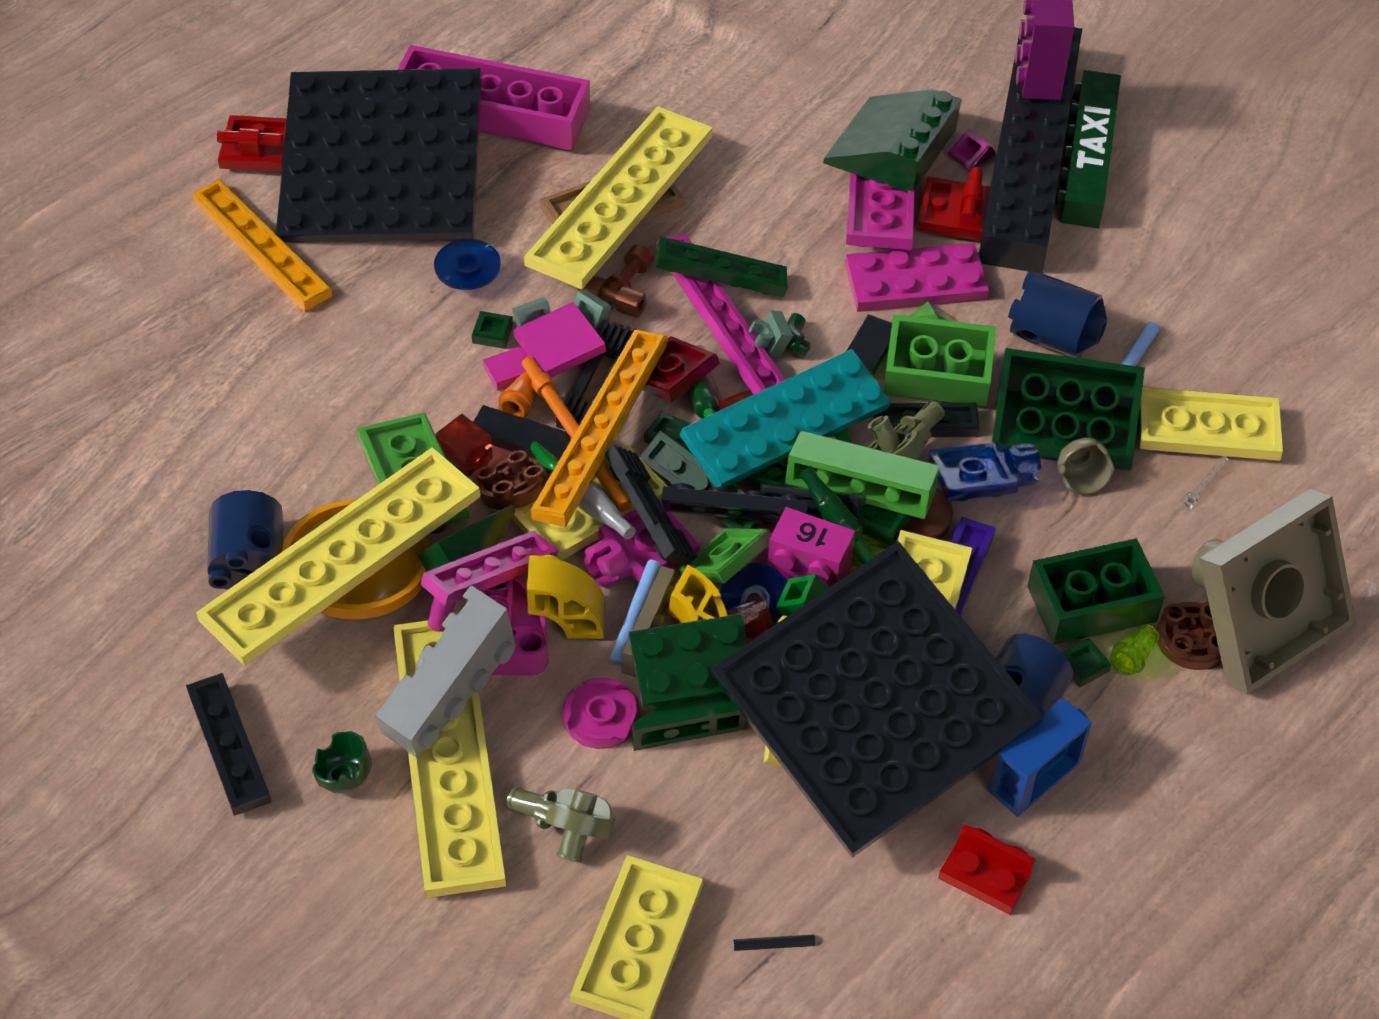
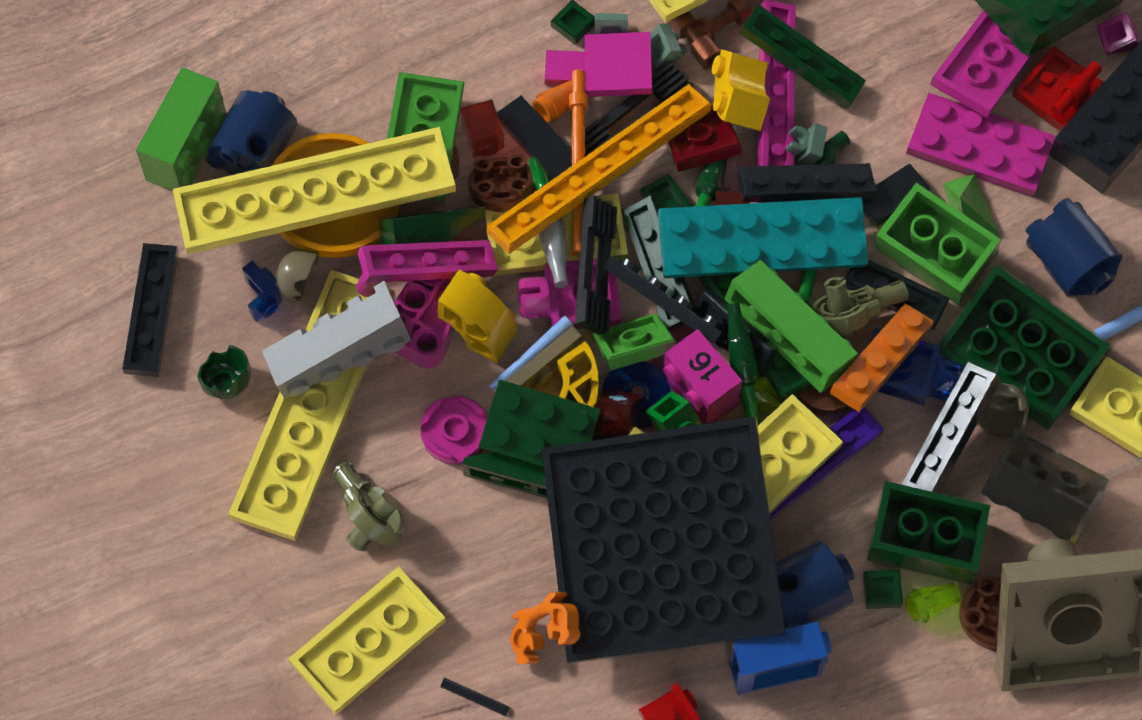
camera: 30 degrees right, 15 degrees up
(170, 566) = (182, 130): none -> bright green brick
(335, 671) = (263, 284): none -> clear blue bracket
(357, 639) = (294, 273): none -> dark tan hair
(683, 312) = (740, 89): none -> yellow brick
(790, 360) = (806, 182): none -> black plate
(828, 810) = (562, 626): none -> orange helmet
(957, 467) = (881, 357): none -> orange plate
(1057, 492) = (952, 429): none -> plate
(1169, 506) = (1045, 487): none -> clear smoke brick

